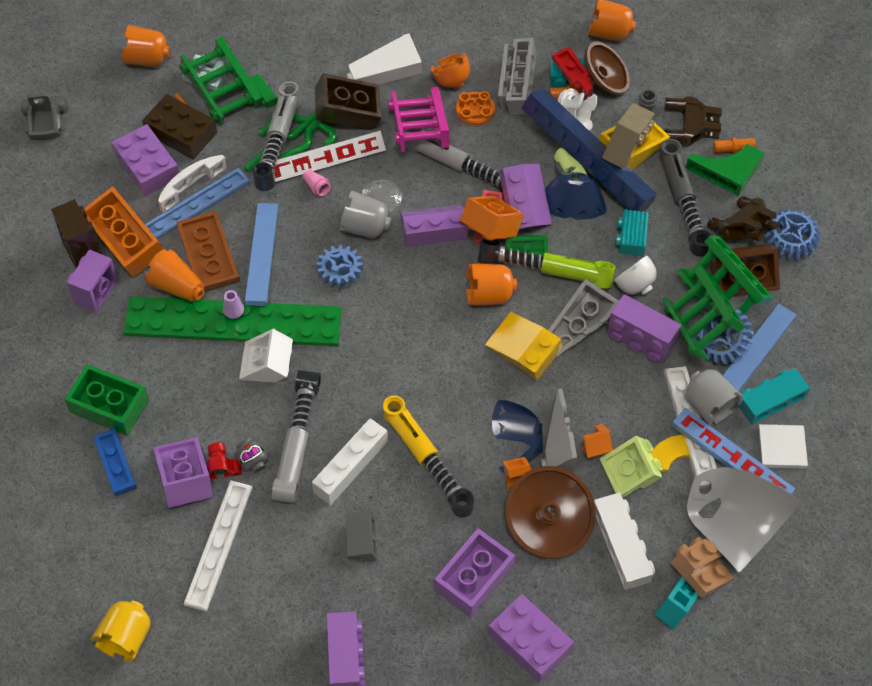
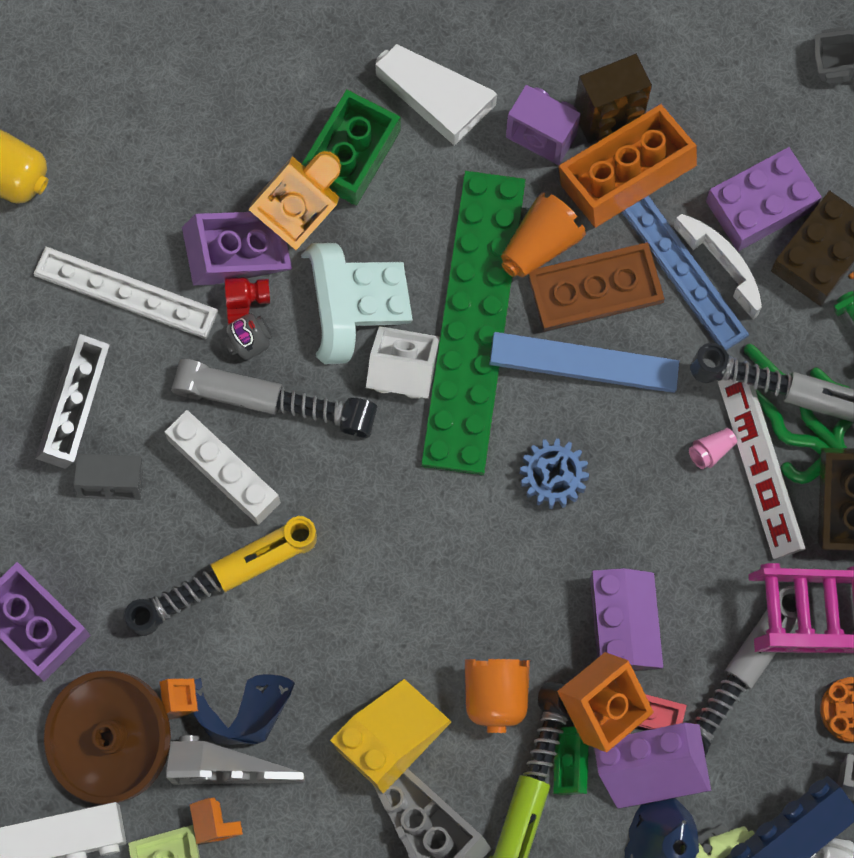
camera: 95 degrees right, 15 degrees up
(63, 353) = (435, 92): none -> white slope
(114, 462) = (258, 160): blue plate -> none
(148, 424) = (296, 196): none -> light orange brick
(219, 388) = (354, 297): none -> light aqua piece
(232, 305) = (482, 319): lavender cone -> none
(307, 564) = (72, 401): none -> light grey brick
(365, 216) = (635, 513): light grey cylinder -> none
(384, 191) = (684, 546): clear dish -> none

